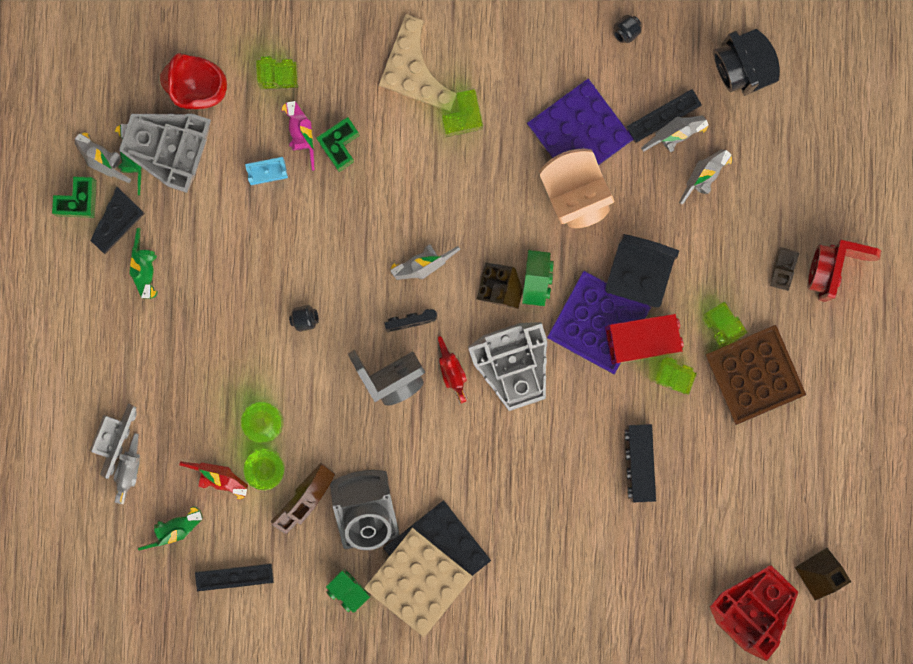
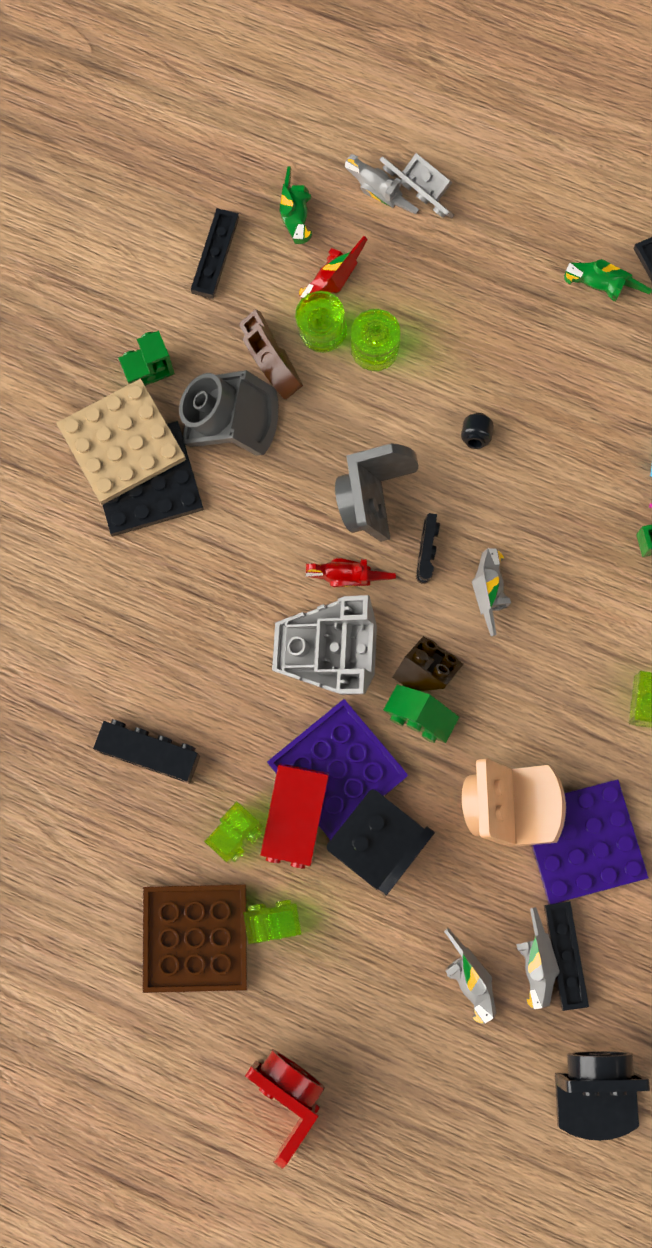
camera: 115 degrees right, 10 degrees down
(784, 269) = (312, 1032): dark brown slope -> none

